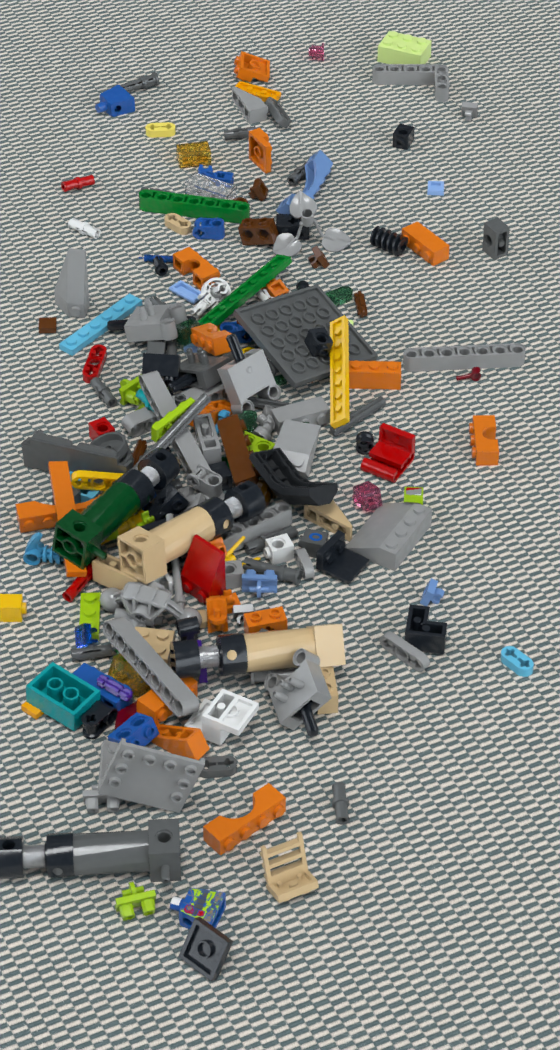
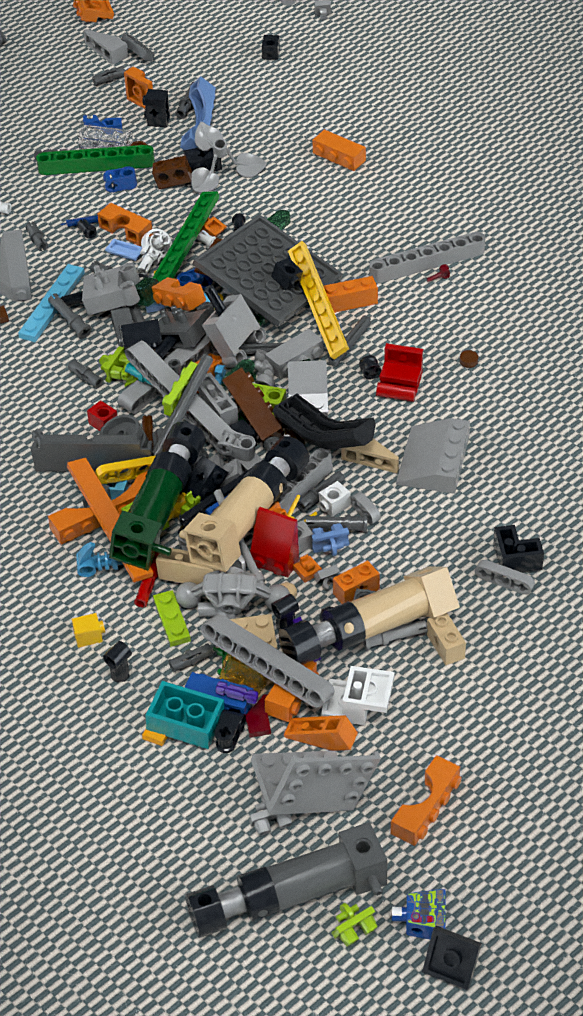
camera: 15 degrees left, 5 degrees up
(23, 638) = (117, 660): none -> black piece
(83, 635) = (177, 641): clear blue tile -> none
(92, 358) = (58, 340): red beam -> none
(112, 263) = (36, 236): none -> dark grey pin
(112, 344) = (73, 320): none -> dark grey pin
(136, 730) = (275, 734): blue brick -> none
(160, 129) = (27, 88): light yellow beam -> none
(177, 223) = (85, 181): tan beam -> none
(193, 154) = (72, 107): clear yellow brick -> none
(216, 614) = (304, 584): orange hips -> none
(218, 768) = (370, 745): dark grey beam -> none
(258, 91) = (114, 30): light orange tile -> none
(258, 190) = (152, 129): reddish brown tile -> none
(269, 169) = (157, 108): none -> black brick
(290, 879) = (495, 848): tan plate -> none
(300, 693) = (427, 651): light grey piece -> none
(313, 541) = (367, 483): dark grey brick -> none
(318, 258) = (241, 187): reddish brown tile -> none
(338, 560) = (400, 497): black bracket -> none
(340, 803) = (512, 756): dark grey pin -> none
(360, 304) = (302, 225): reddish brown axle -> none
(367, 496) = (397, 422): clear pink brick -> none
(388, 241) = (303, 156): black piece -> none
(413, 494) = (444, 411): lime slope -> none
(431, 593) = (503, 508): medium blue tile -> none
(435, 188) = (322, 92): light blue tile -> none
(462, 456) = (469, 358): none -> reddish brown tile
(483, 439) = (479, 329): orange arch -> none
(496, 238) = (407, 130): dark grey brick -> none

